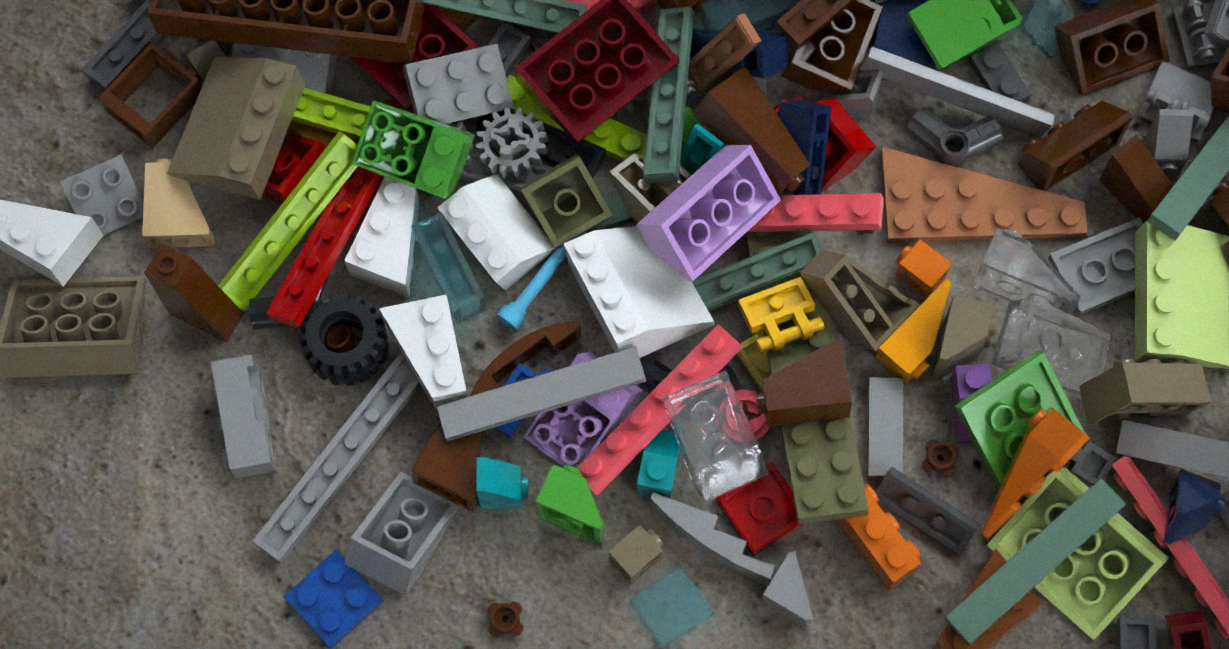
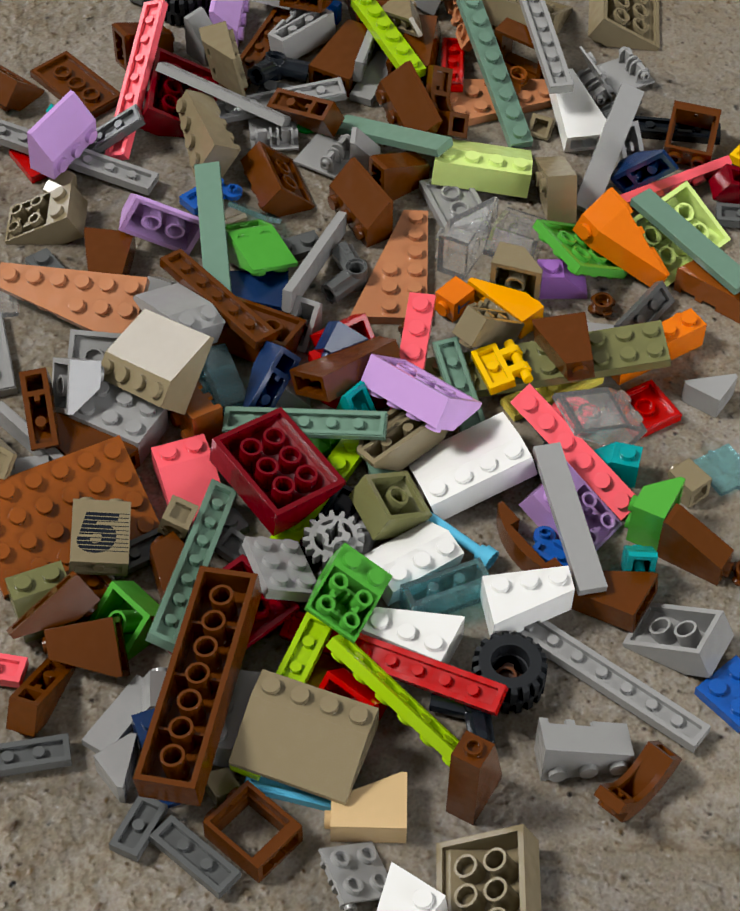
camera: 90 degrees left, 20 degrees down
(197, 471) = (639, 783): none -> reddish brown arch
(526, 553) = (694, 547): none -> reddish brown slope
(699, 530) = (670, 439): light grey slope -> none
(723, 52) = (273, 376): nougat tile -> none

